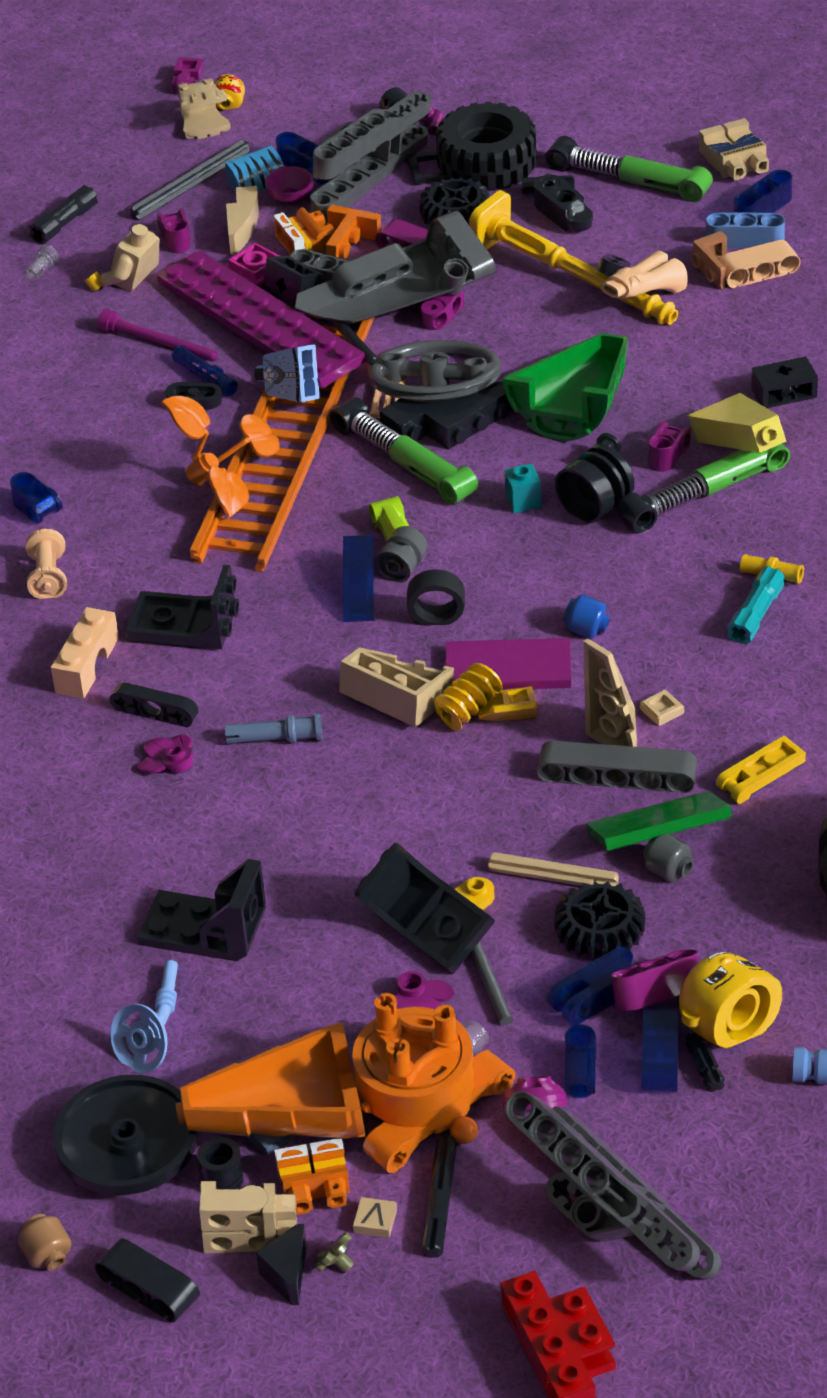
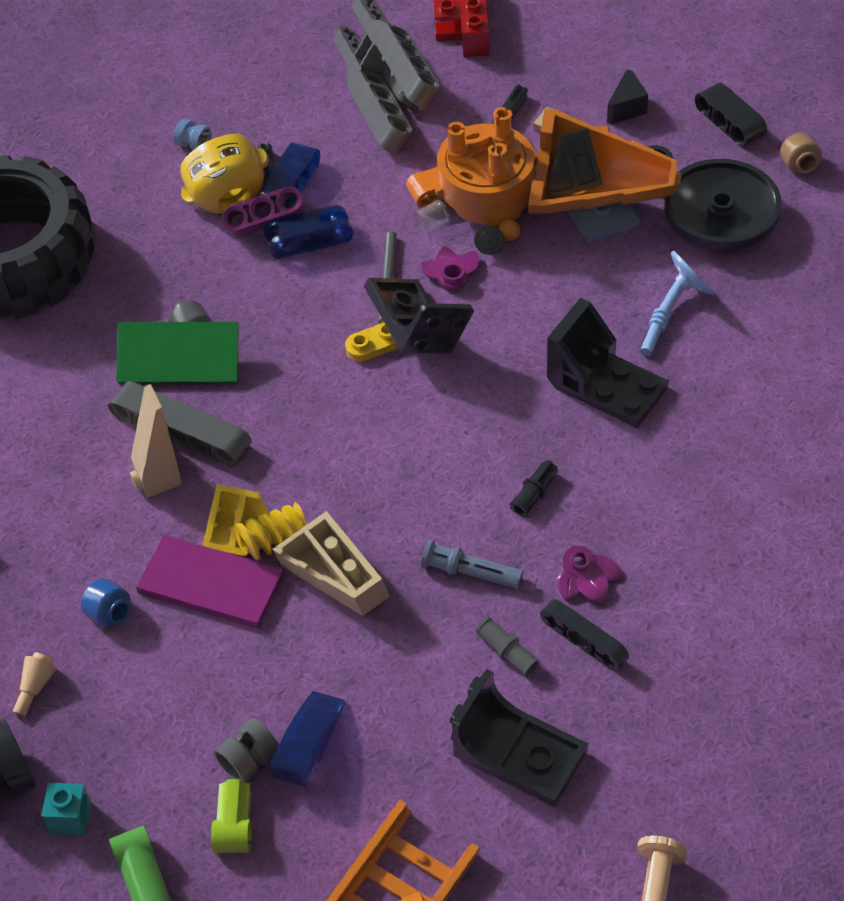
camera: 160 degrees left, 10 degrees up
(75, 664) = (628, 737): light nougat arch -> none
(219, 682) = (507, 646): none -> dark grey pin
(241, 807) = (534, 488): none -> black axle
(243, 1217) = (648, 117): tan hips -> none
(309, 1098) = (574, 165): none -> black wing
(335, 1255) = (591, 98): olive plant -> none
(435, 581) = (244, 661): black tyre -> none
(541, 1087) = (416, 156): magenta piece -> none
(549, 870) = (289, 346): tan axle -> none
(580, 1061) = (353, 180): clear blue piece -> none
(599, 919) = (278, 292): black gear -> none
(612, 562) = (35, 674): none -> light nougat cone
(662, 707) = (99, 485): tan tile -> none
(760, 769) = (60, 387): yellow plate -> none

